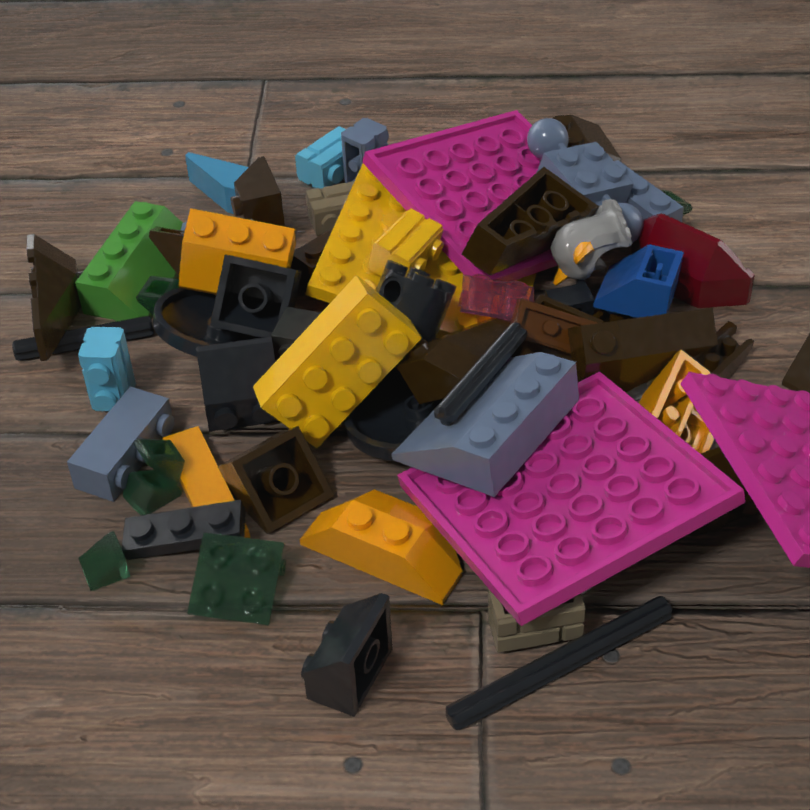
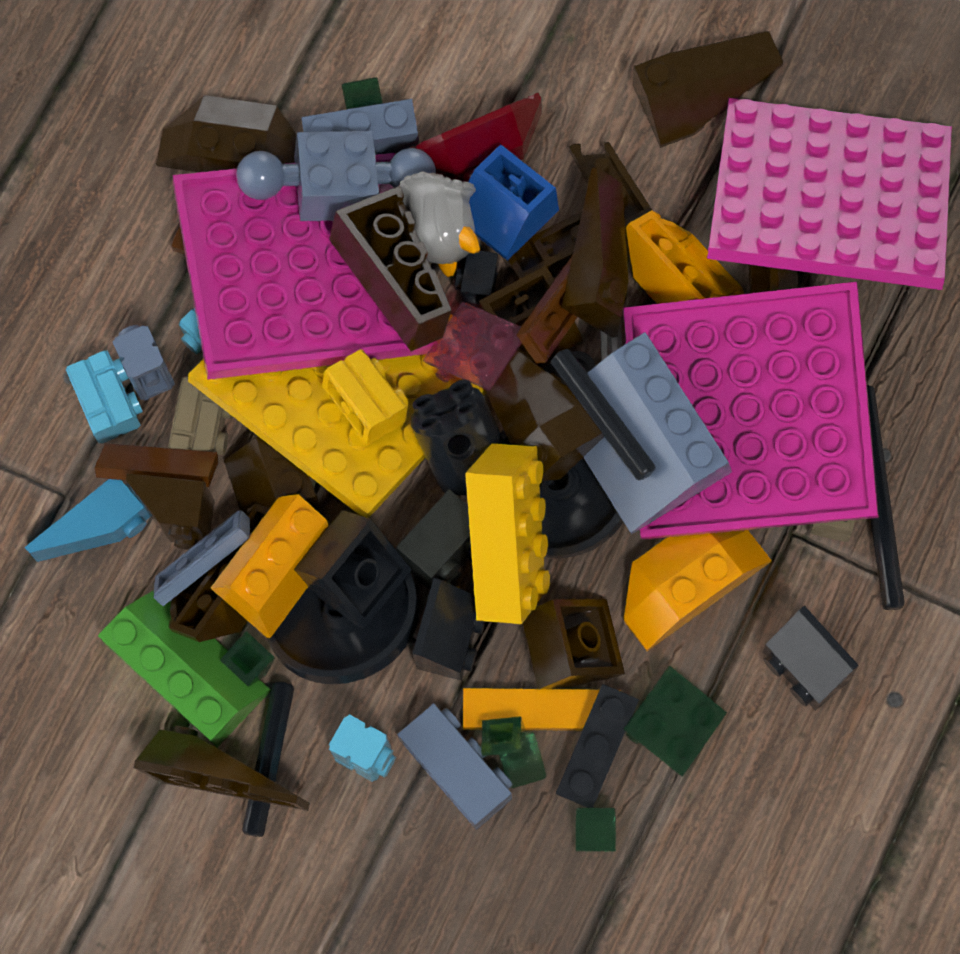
camera: 60 degrees left, 30 degrees up
(293, 192) = (120, 459): none -> reddish brown tile

